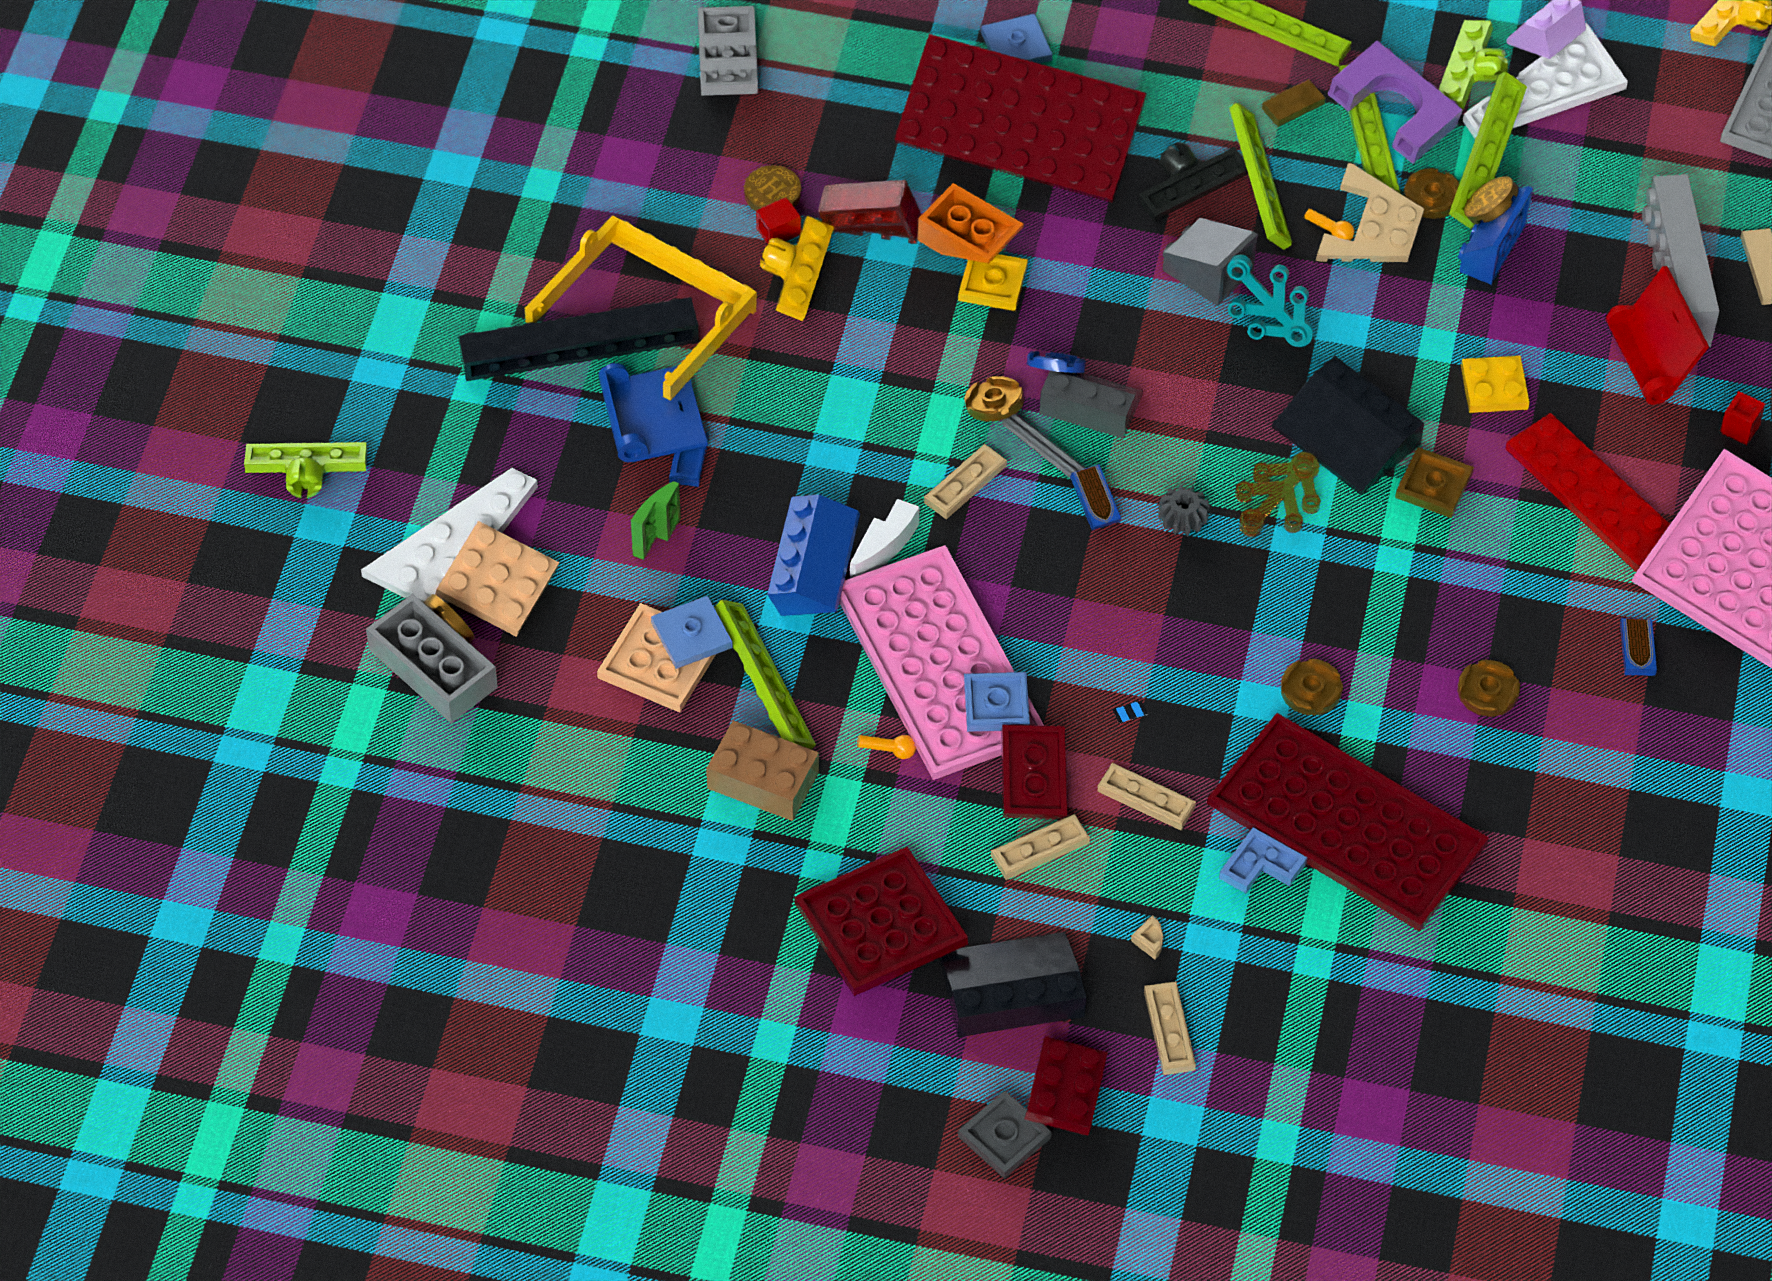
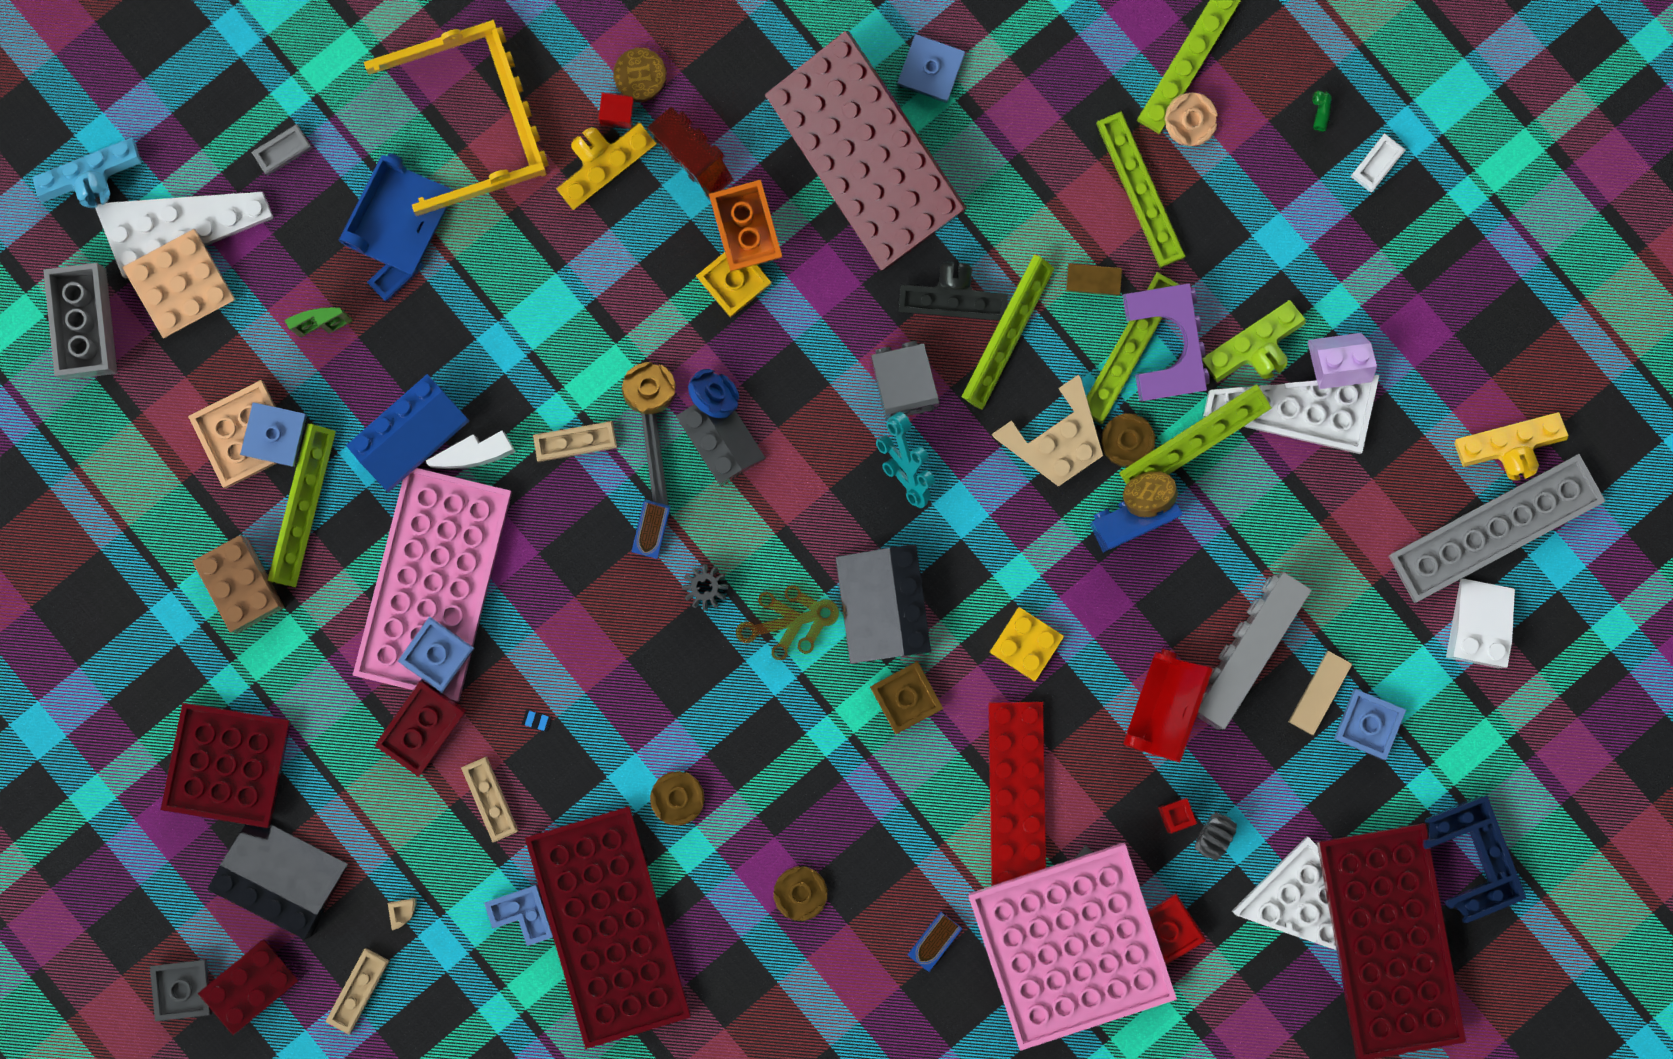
camera: 40 degrees right, 30 degrees up
(305, 462) = (120, 79): lime plate -> none
(339, 548) = (88, 174): none -> medium azure plate
(448, 615) = (114, 299): pearl gold tile -> none
(500, 430) = (282, 150): none -> light grey tile
(578, 339) = (392, 111): black brick -> none
(902, 746) = (354, 629): light orange bar -> none
(1040, 847) = (385, 784): tan tile -> none
(1340, 229) = (1027, 426): light orange bar -> none

